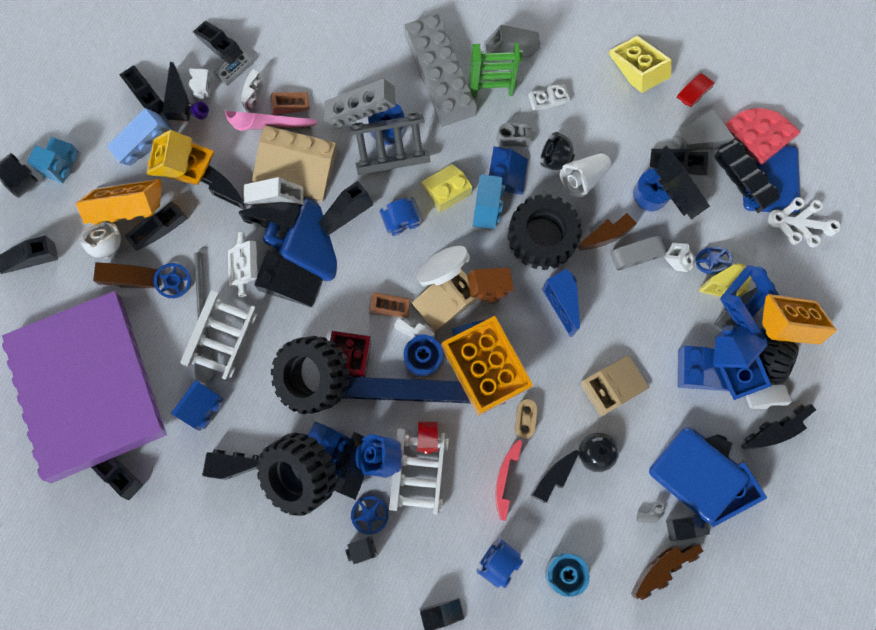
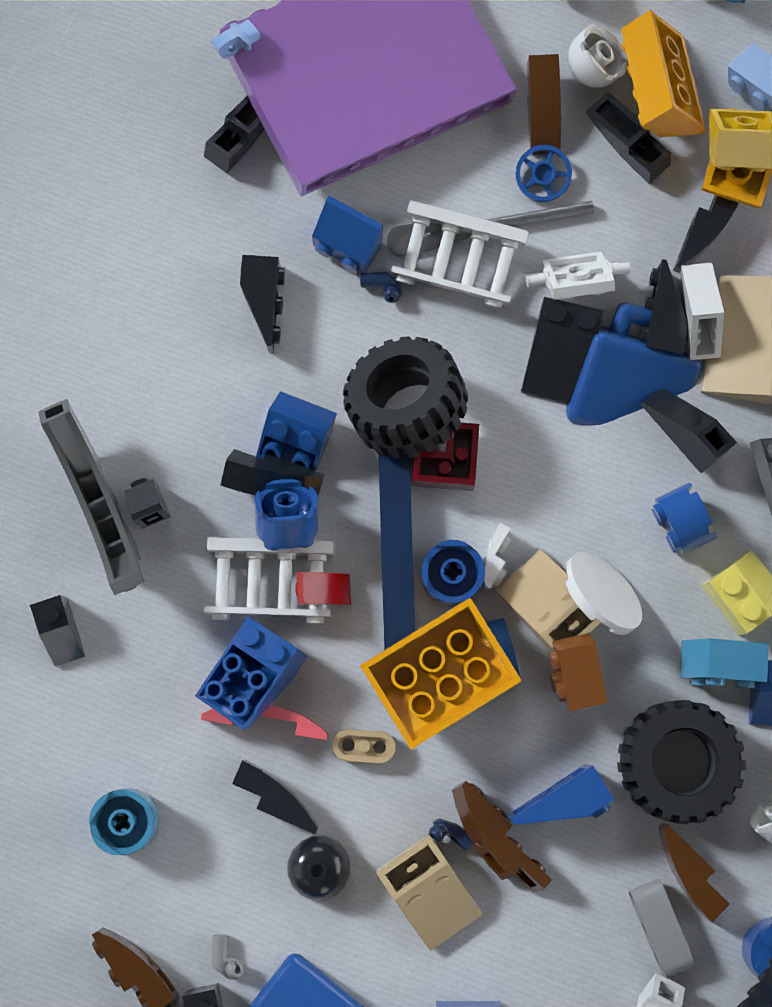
camera: 90 degrees right, 5 degrees up
(50, 466) = (235, 38): none -> light blue piece
(231, 385) = (385, 282): none -> dark blue arm
(282, 484) = (250, 391): black tyre -> none
(356, 584) = (96, 498): none -> dark grey arch
(369, 515) = (201, 510): blue wheel -> none
(389, 312) = (544, 515): nougat slope -> none
(479, 486) = (250, 674): none -> blue slope
(499, 564) = (135, 713): blue brick -> none
(579, 368) = (450, 829): none -> dark blue arm
(580, 347) = (487, 829): none -> reddish brown slope

